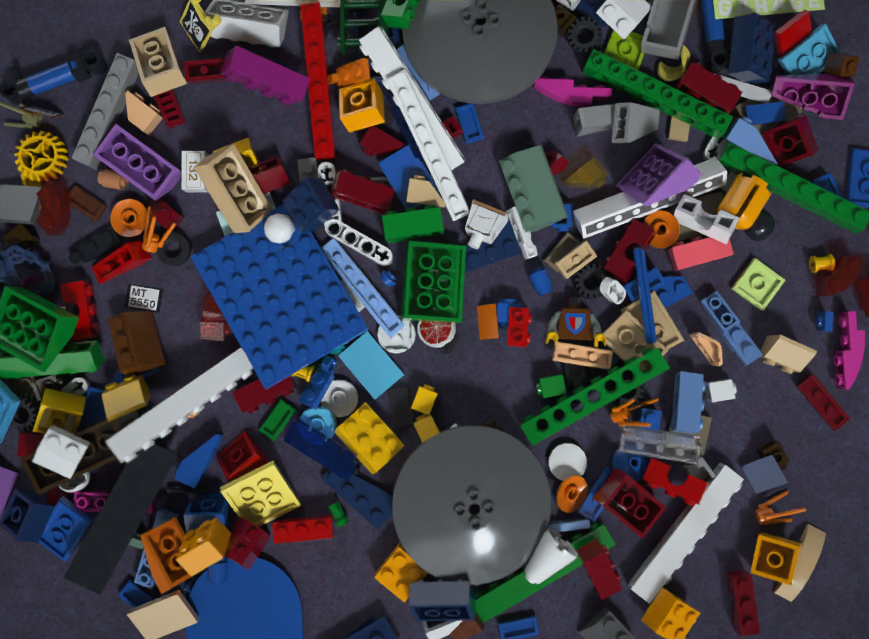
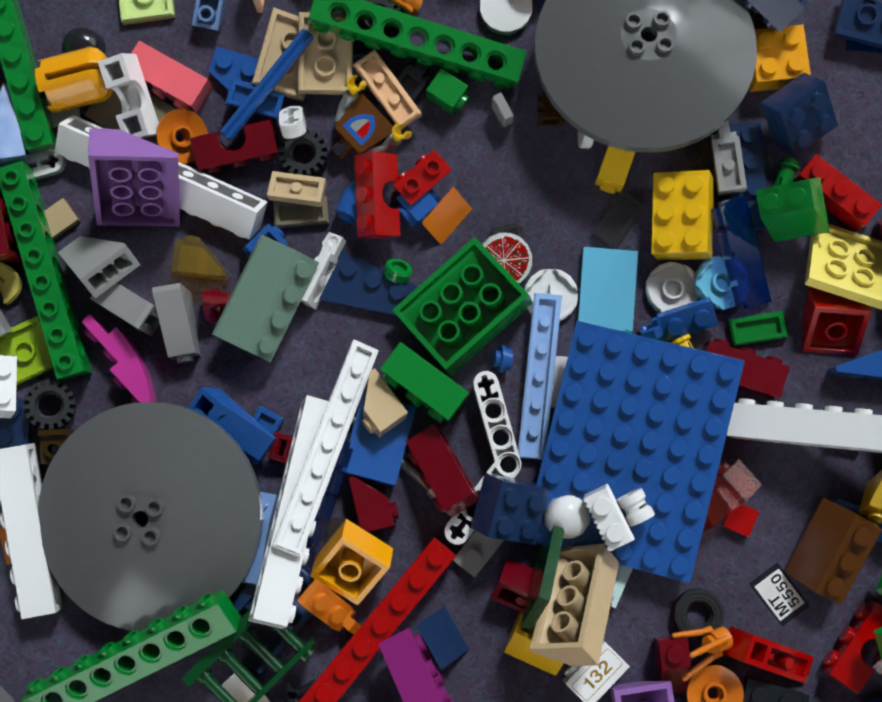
camera: 135 degrees left, 5 degrees down
(194, 315) = (741, 520): none -> red tile
(249, 263) = (635, 507): none -> white wheel
(258, 246) = (608, 517): none -> white brick
(261, 184) = (543, 578): none -> dark green tile
(284, 115) = (442, 637): none -> dark blue sticker
(316, 497) = (793, 209): none -> green slope
(360, 551) = (799, 113): none -> dark blue brick
(373, 489) = (728, 161): none -> light grey hinge
(424, 399) = (587, 201): yellow brick -> none
(484, 223) = (351, 314): white torso -> none
(484, 269) = (397, 271): none -> green tile
(488, 115) = (234, 420): none -> blue slope
(514, 404) = (502, 110): none -> light grey tile
(544, 302) = (373, 215): none -> red arch
(564, 135) = (177, 322): none -> light grey slope

